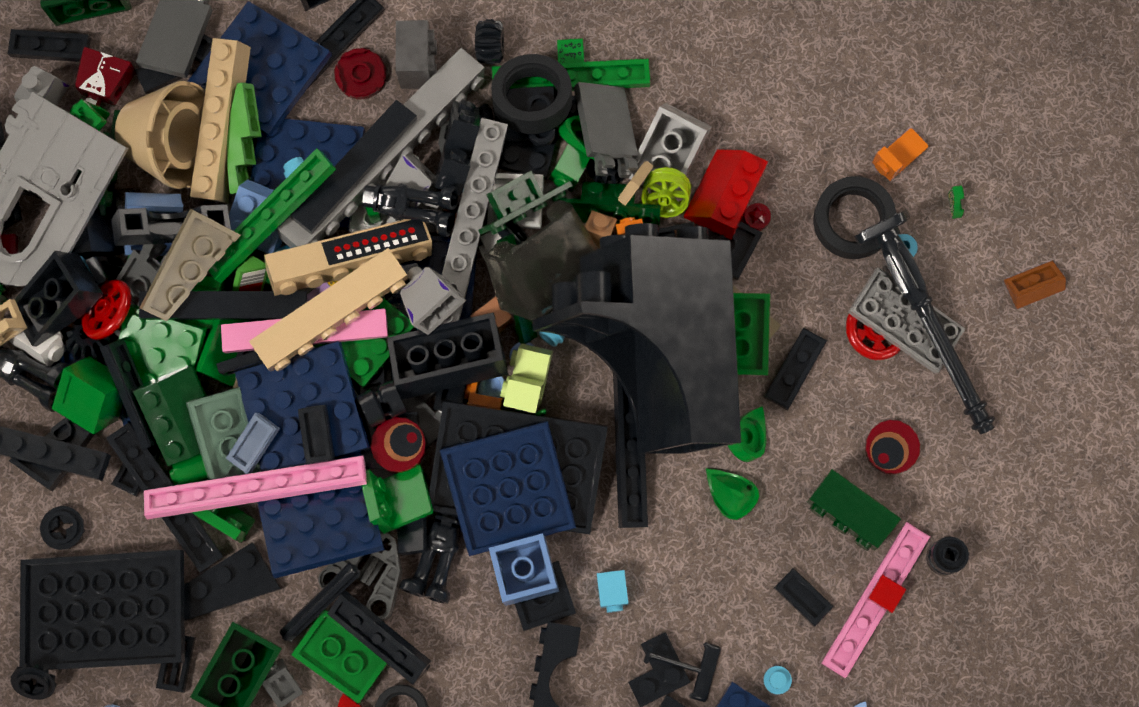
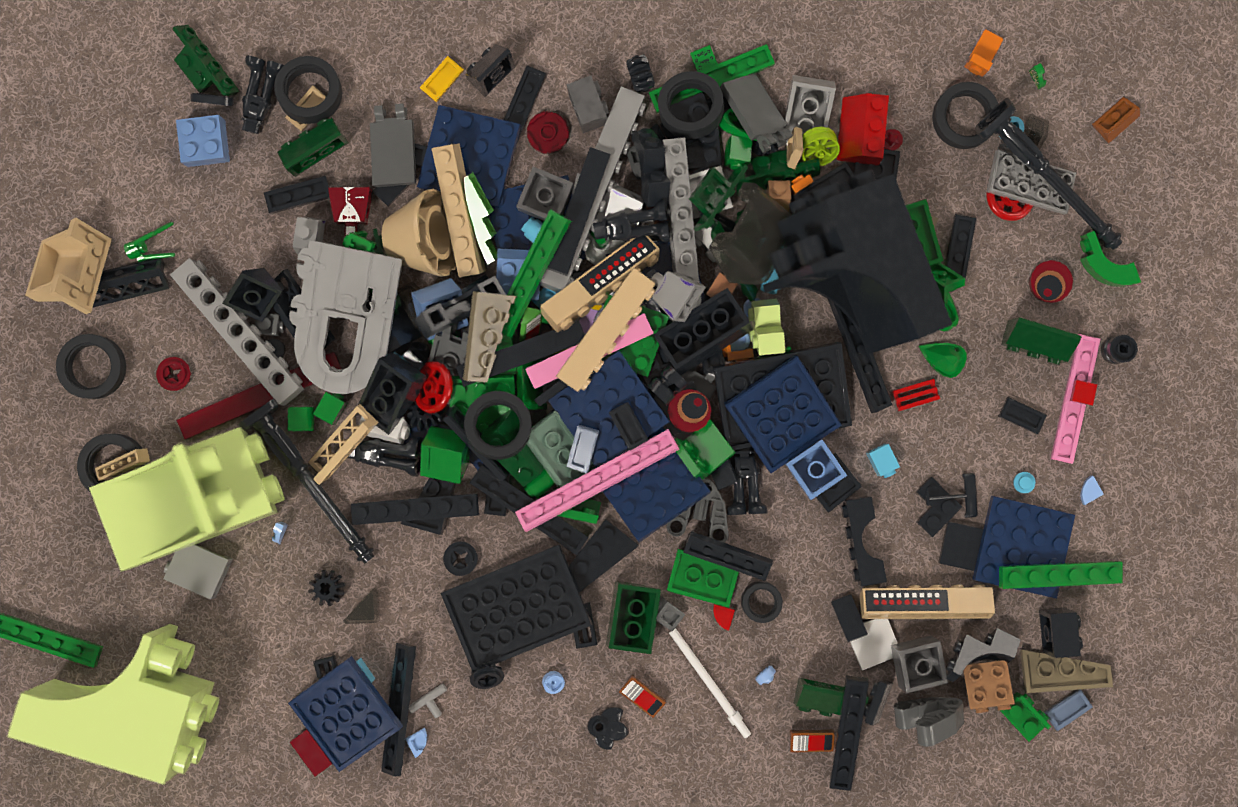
camera: 25 degrees left, 10 degrees up
(153, 345) = (491, 399): none -> black tyre
(320, 602) = (675, 546): black axle -> none
(325, 130) = (544, 193): none -> flat silver brick
(675, 536) = (933, 390): none -> red tile
(756, 395) = (946, 279): none -> green bracket
(932, 263) = (1036, 129): none -> clear smoke slope
(961, 455) = (1104, 270): none -> green arch

